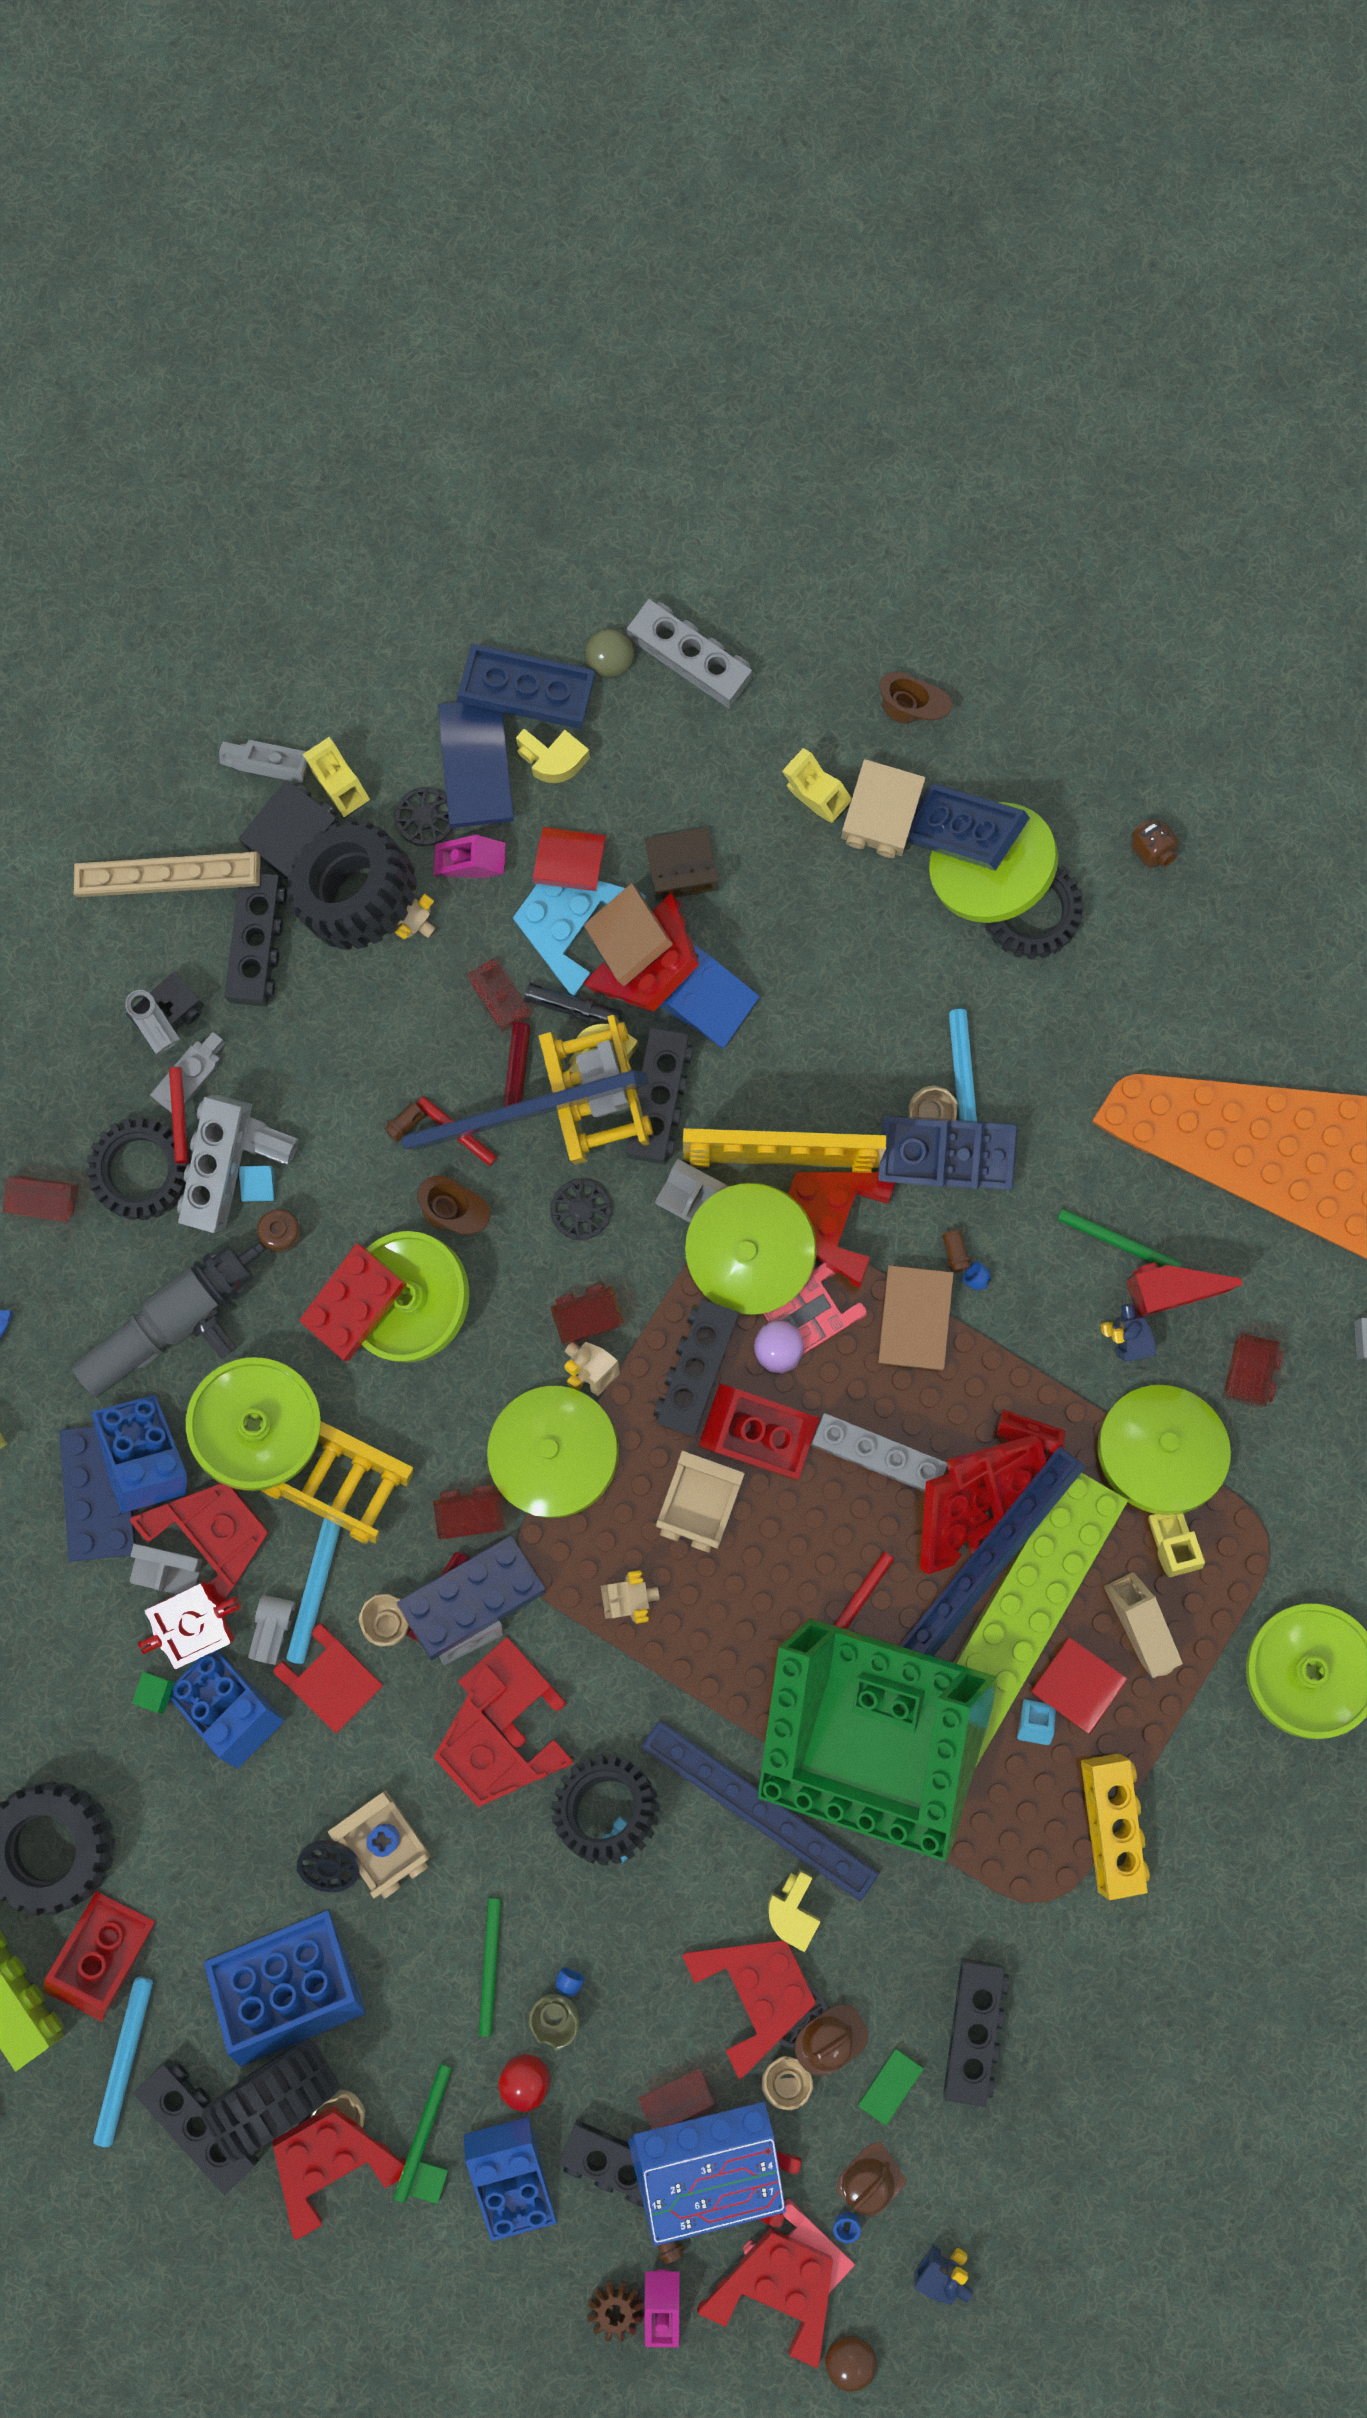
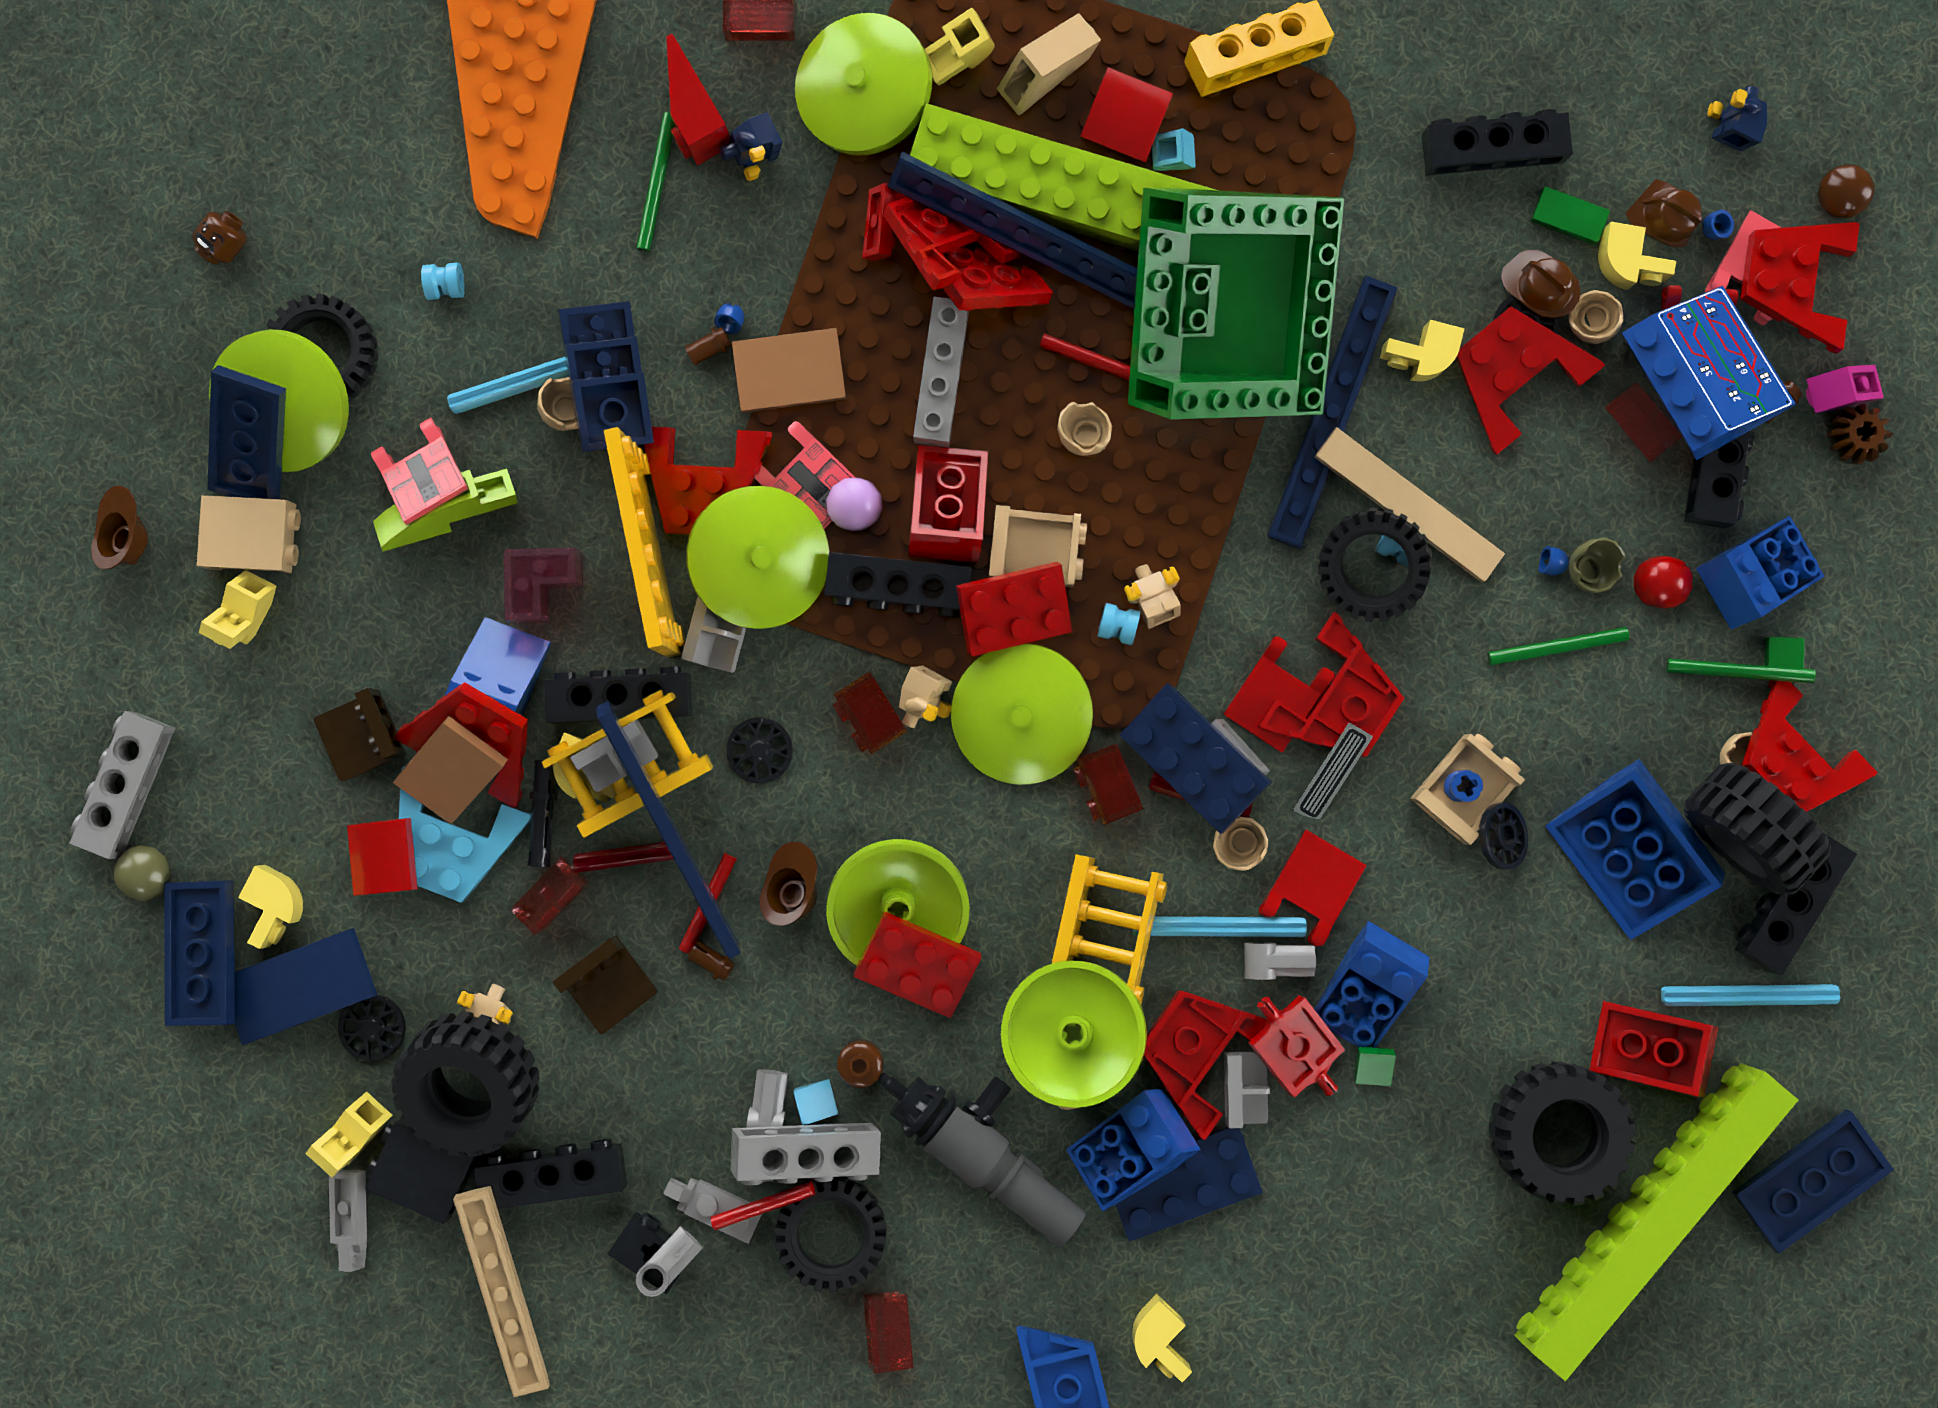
camera: 105 degrees left, 5 degrees up
(407, 1027) = (607, 984): none -> dark brown bracket
(427, 1723) = (1333, 772): none -> sticker
(469, 857) = (405, 965): dark pink slope -> none
(610, 1559) = (1118, 624): none -> medium azure wheel
(647, 1466) = (1014, 608): none -> red plate
(655, 1859) = (1396, 493): none -> tan tile
(783, 1042) = (531, 573): none -> clear pink brick
(796, 1572) = (1084, 428): none -> tan hair
(835, 2124) = (1623, 261): none -> light yellow brick
(868, 980) = (483, 495): none -> lime slope
(895, 972) = (422, 478): none -> coral flag
(1070, 1029) = (442, 281): none -> medium azure wheel

